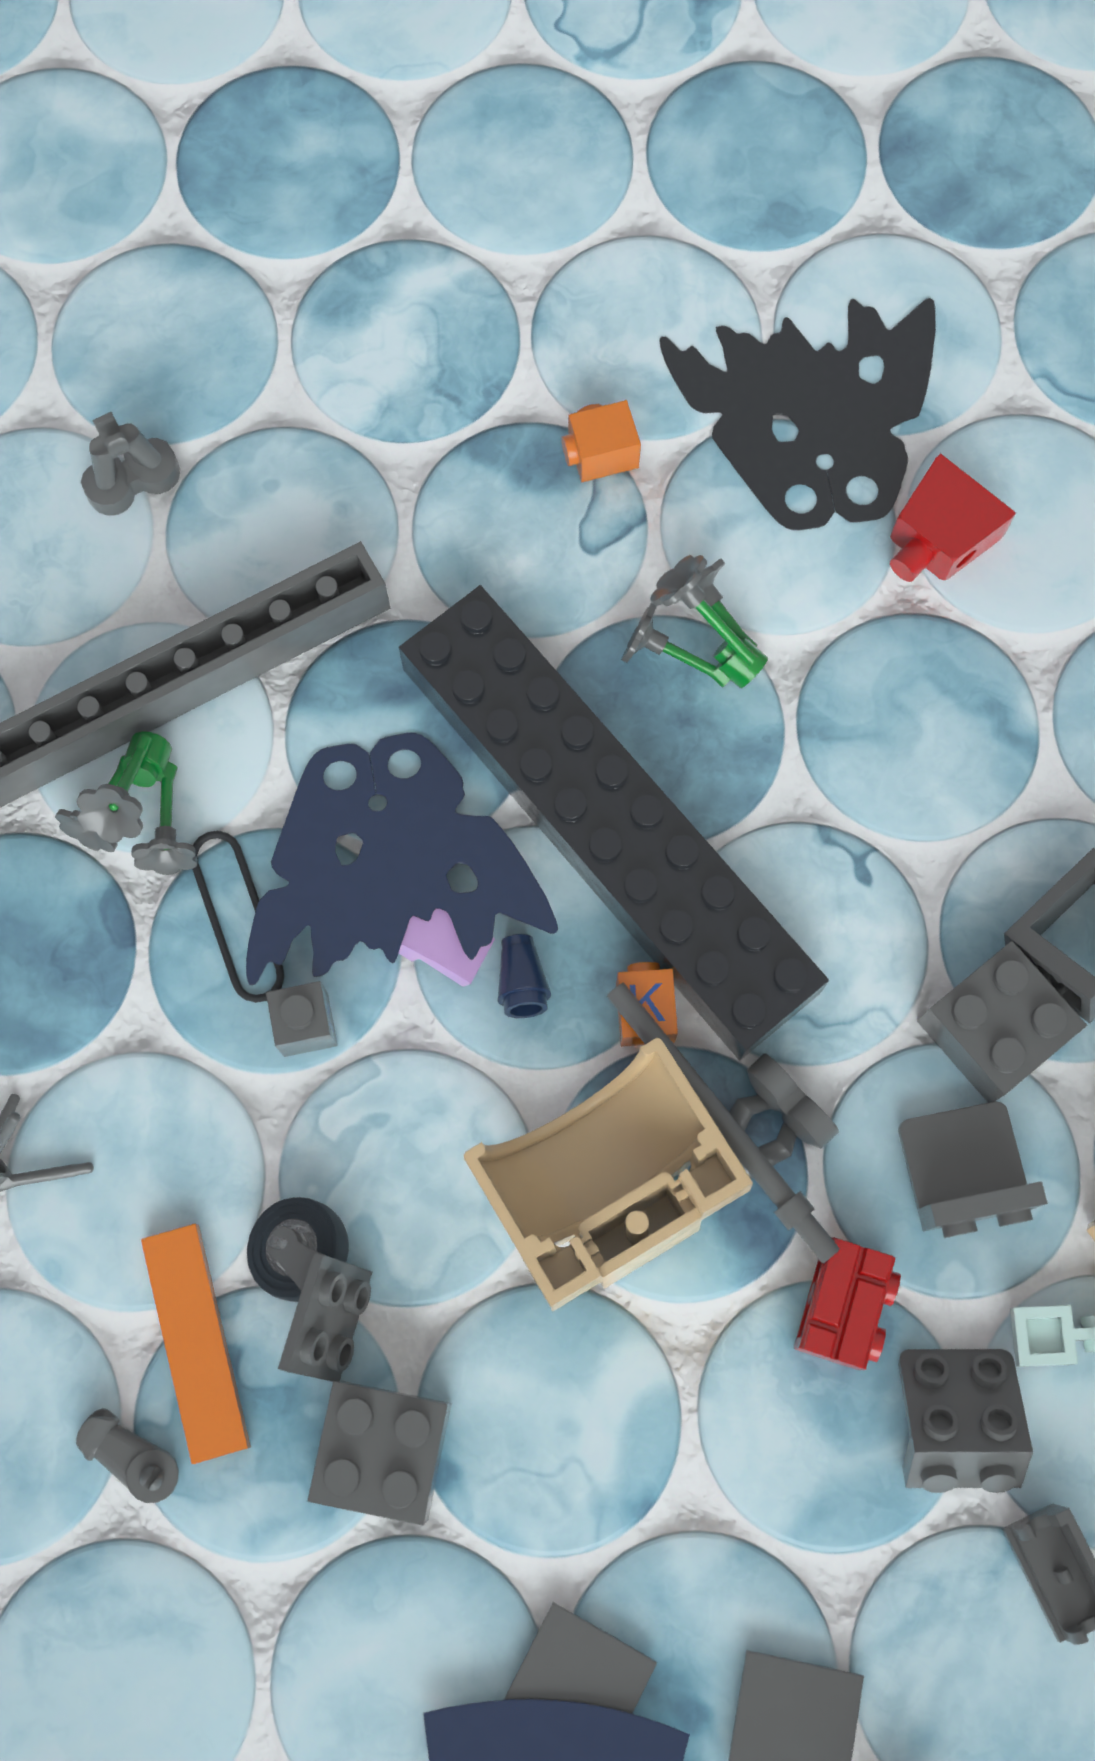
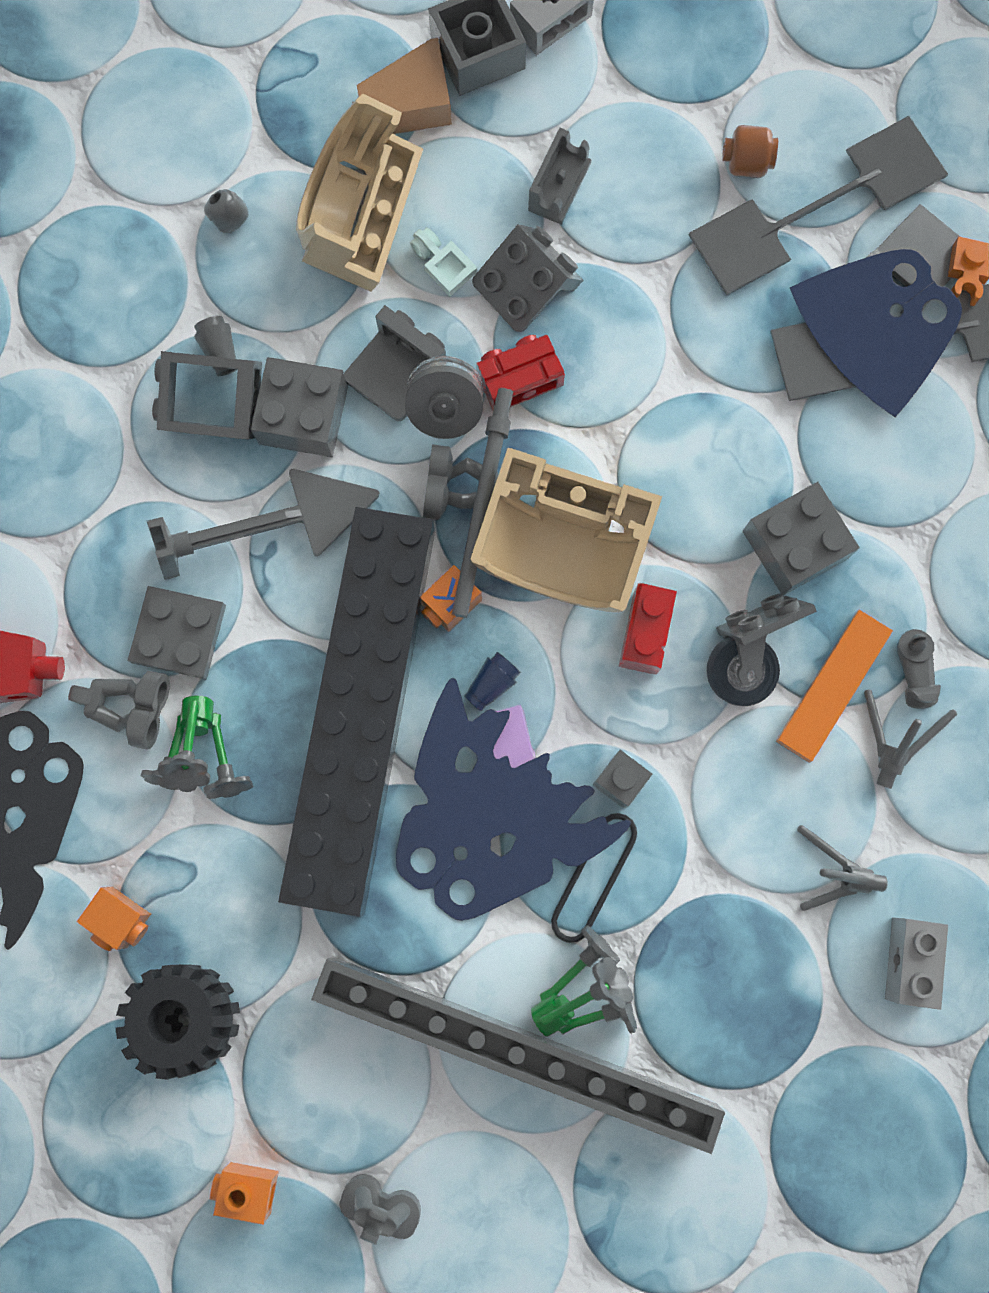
camera: 130 degrees left, 5 degrees up
(63, 1335) = (893, 758): none -> dark grey plant
(251, 370) = (244, 1192): none -> orange brick
(432, 1185) = (647, 628): none -> red brick
(453, 421) = (153, 1023): none -> black wheel
(798, 628) = (143, 721): none -> dark grey piece
(847, 710) = (177, 632): none -> dark grey plate
(863, 958) = (323, 506): none -> dark grey piece
(881, 1184) = (444, 397): none -> dark grey piece

